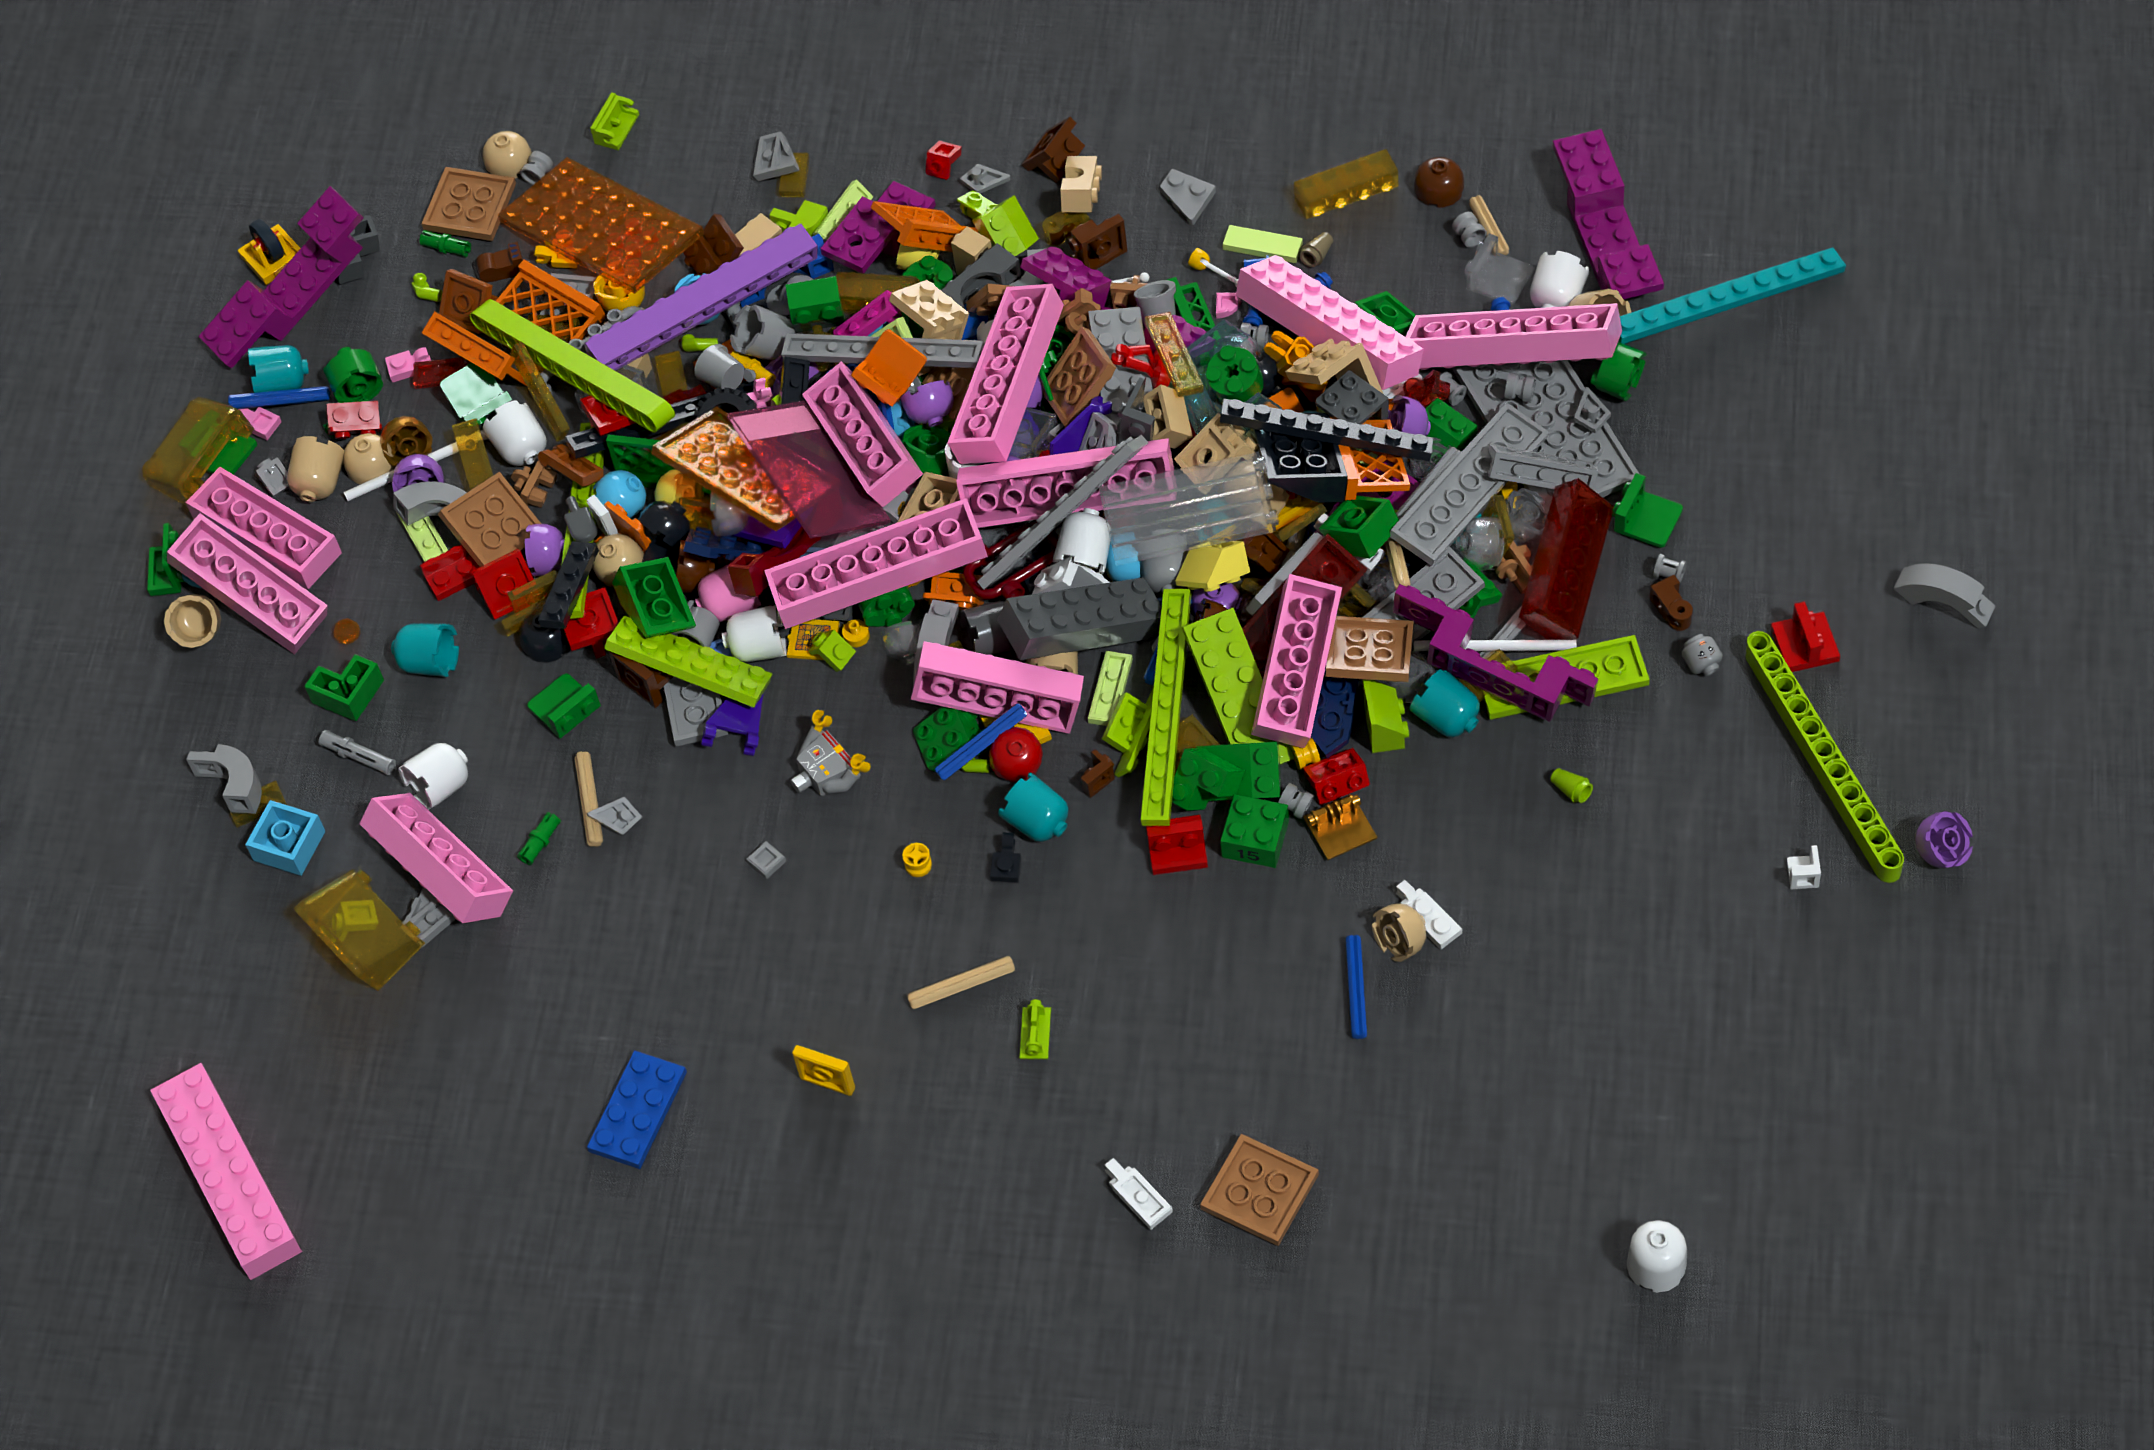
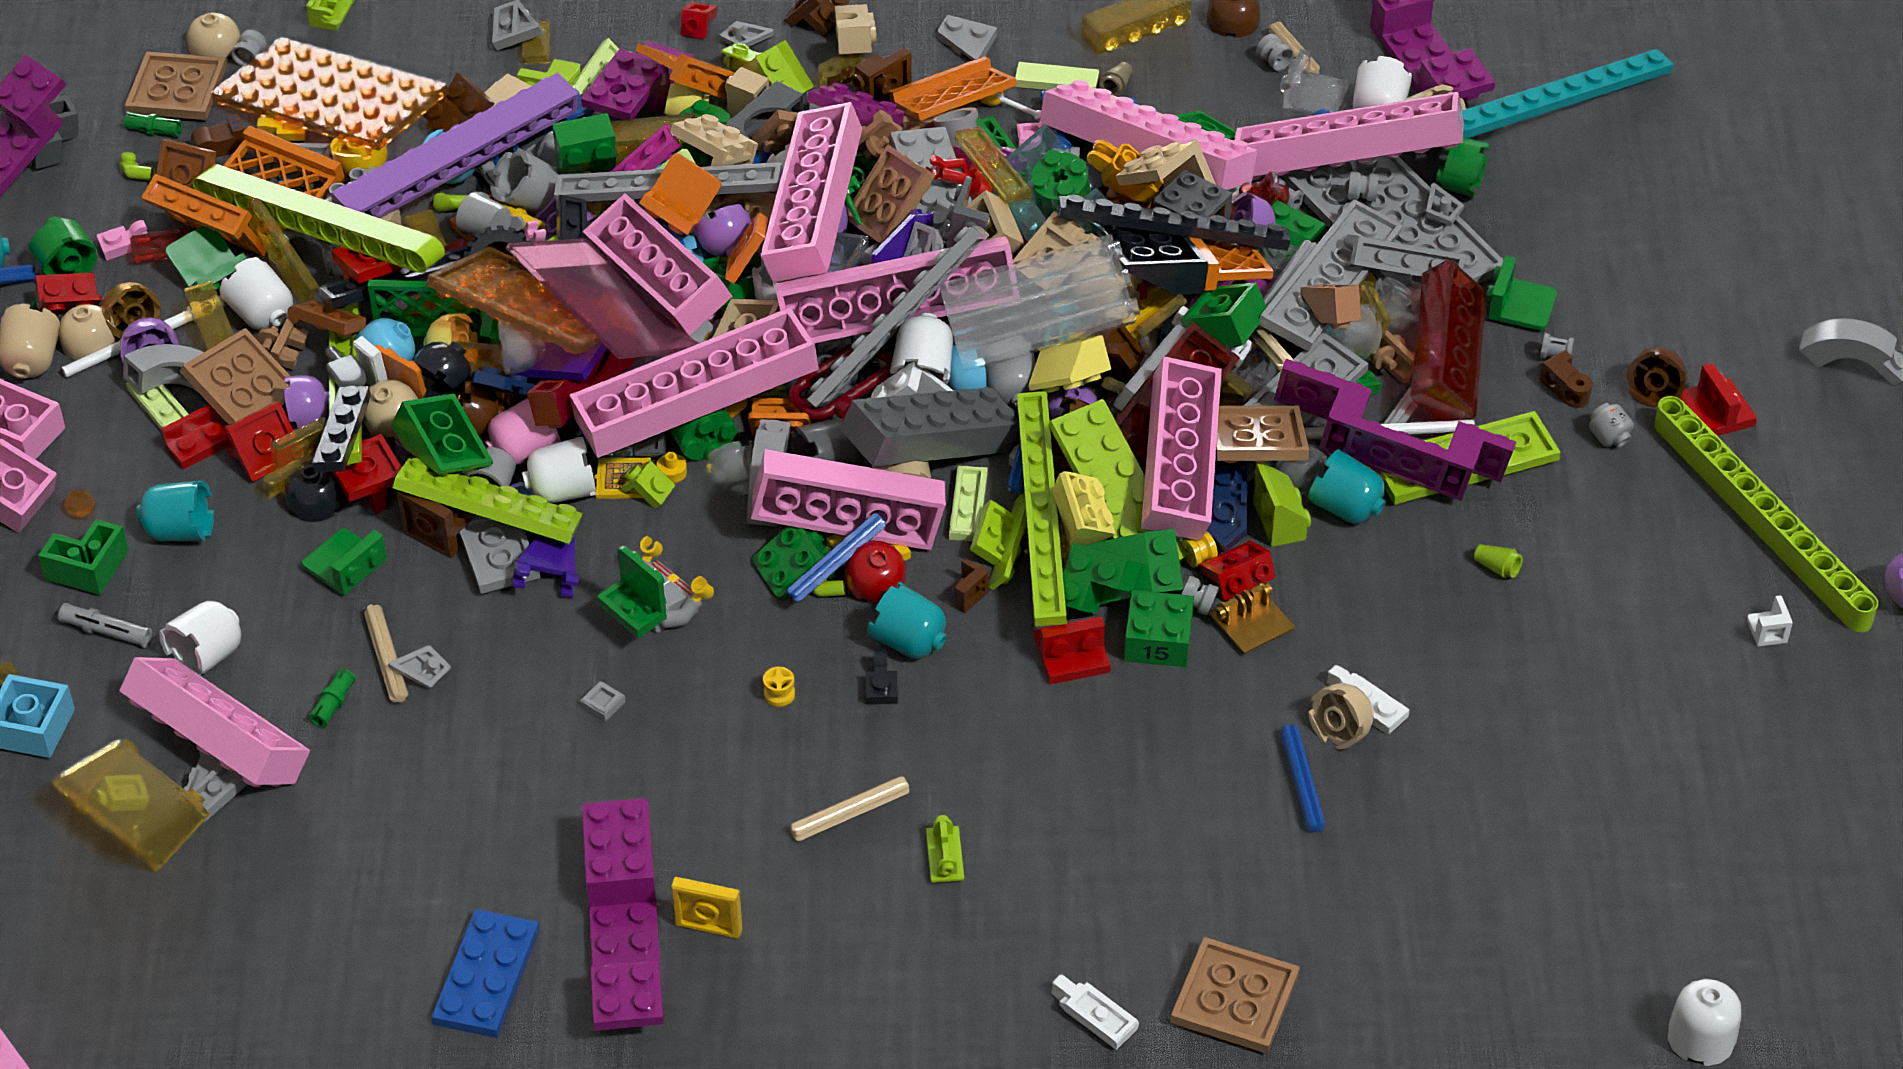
camera: 15 degrees left, 10 degrees down
(757, 1052) = (622, 915): none -> magenta bracket
(800, 769) = (638, 597): none -> green bracket
(941, 426) = (746, 247): none -> orange tile
(1150, 251) = (950, 89): none -> orange fence
(1201, 714) = (1083, 508): none -> light yellow slope
(1459, 521) = (1334, 303): none -> nougat slope
(1754, 607) = (1655, 375): none -> reddish brown cylinder

